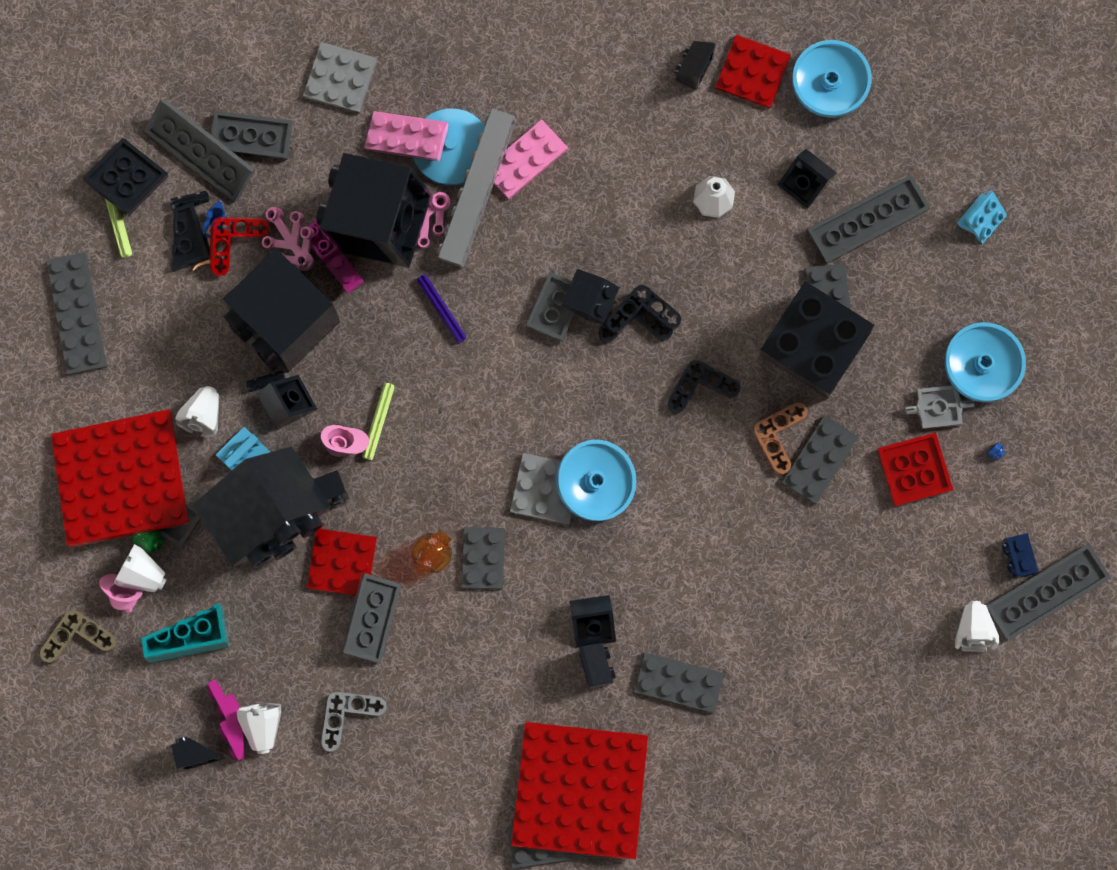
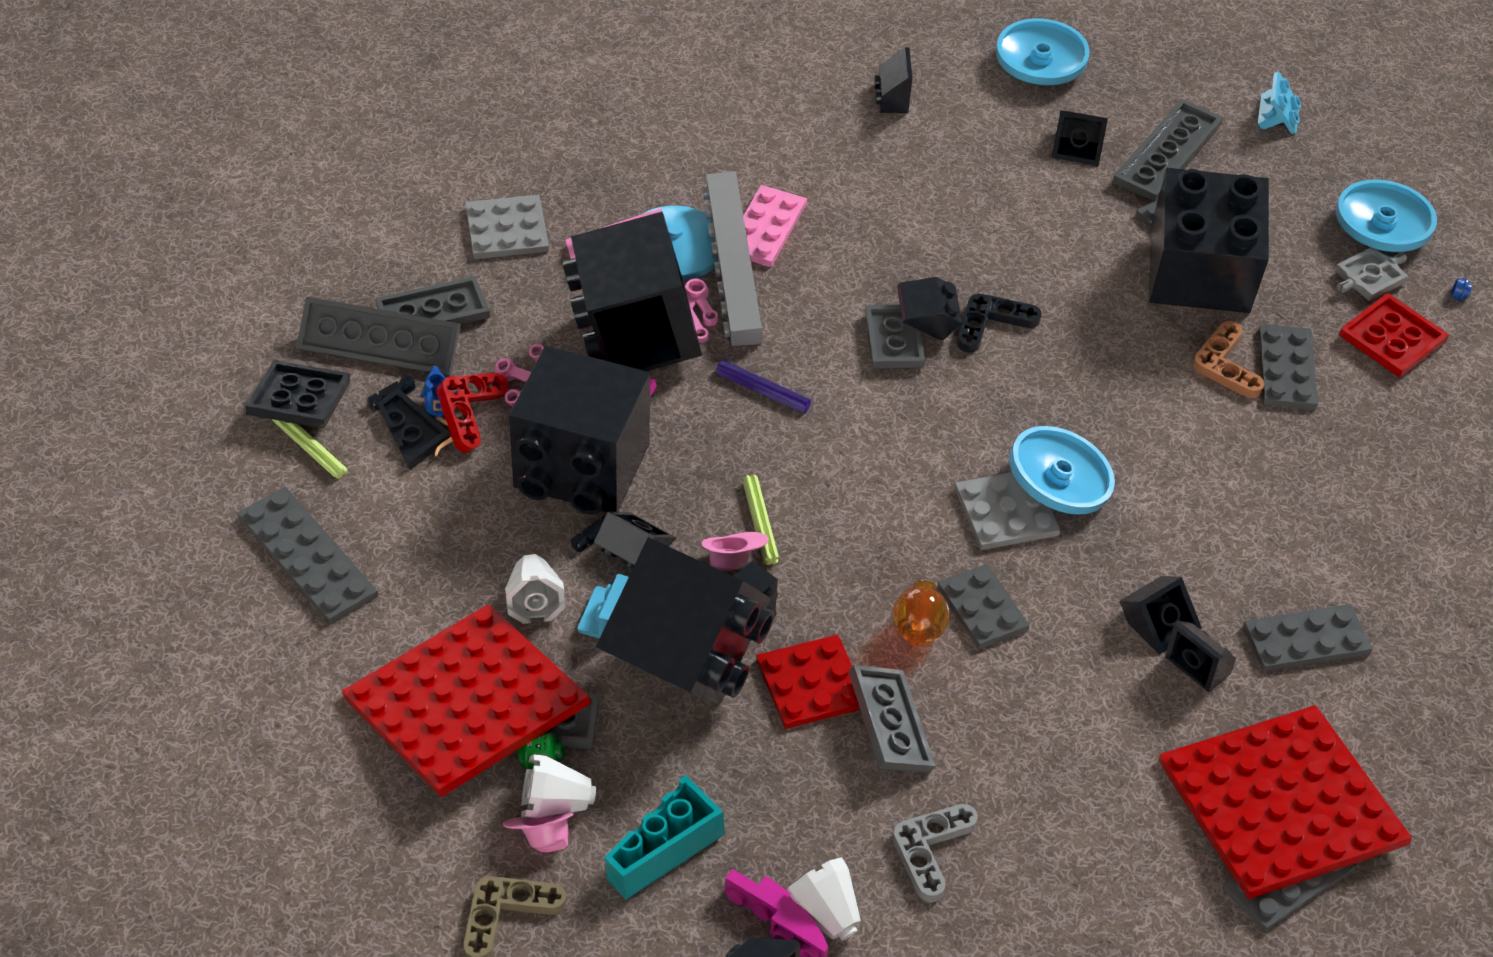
camera: 30 degrees left, 30 degrees down
(646, 304) = (993, 293): black beam -> none
(702, 378) = (1102, 342): black beam -> none
(714, 196) = (995, 179): white cone -> none
(753, 71) = (955, 78): red plate -> none

